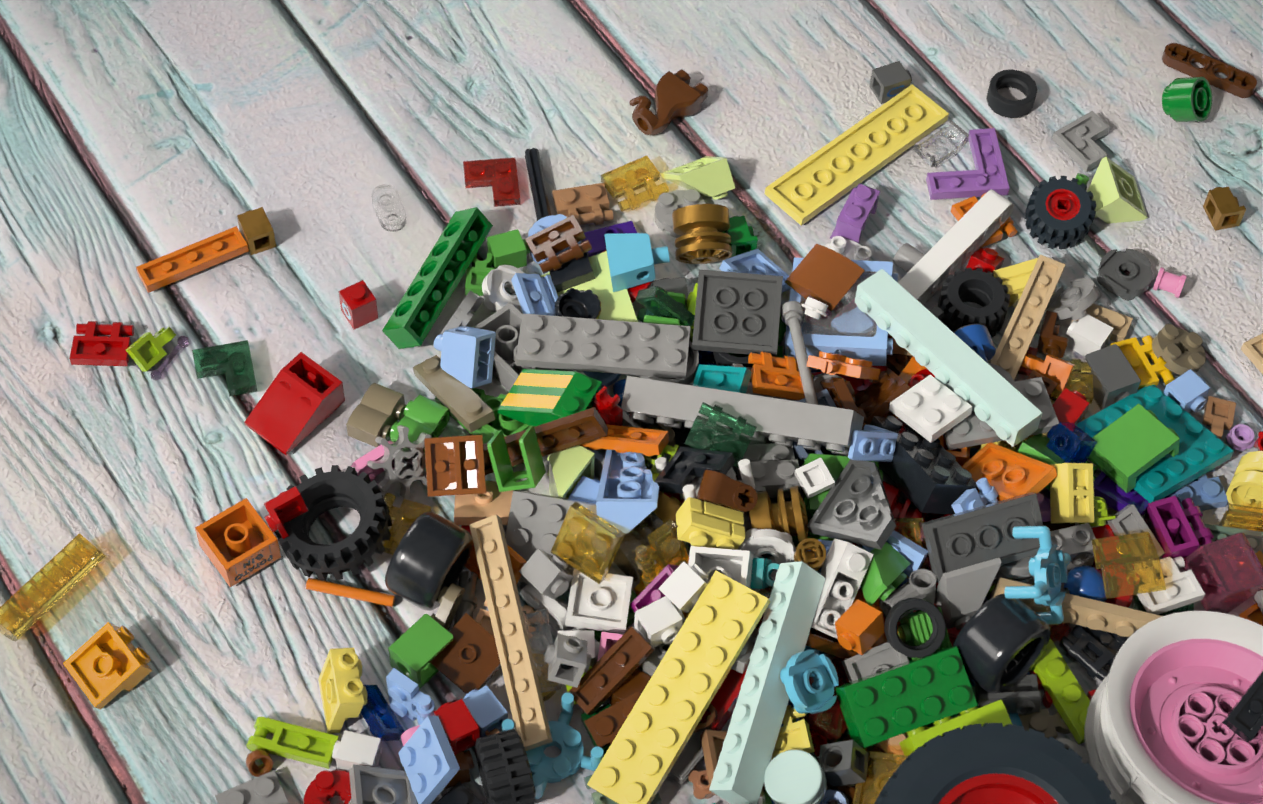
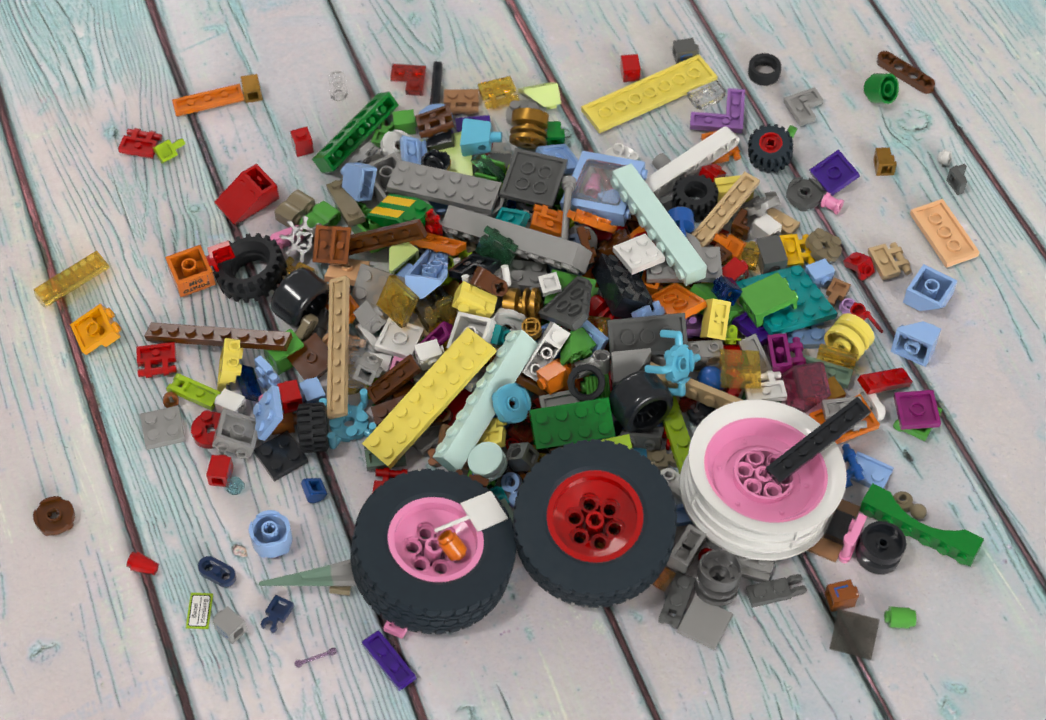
camera: 15 degrees right, 0 degrees up
(183, 342) = (190, 149): clear purple hinge -> none
(218, 690) = (156, 354): none -> red plate
(227, 359) = (215, 163): clear green plate -> none
(311, 644) = (216, 335): none -> plate
(350, 592) = (251, 311): orange bar -> none
(502, 465) = (358, 245): bright green piece -> none
(672, 100) = (537, 44): reddish brown hips -> none
(685, 586) = (447, 333): white brick -> none
(814, 308) = (583, 182): white plate -> none
(819, 119) = (630, 68): none -> red brick
(824, 276) = (596, 164): dark orange slope -> none
(855, 212) = (632, 131): medium lavender window -> none
(872, 444) = (591, 269): light blue bracket -> none
(1116, 194) = (812, 141): yellowish green slope -> none
(1160, 235) = (834, 173): none -> dark purple hinge
(1238, 368) = (860, 263): none -> red bracket

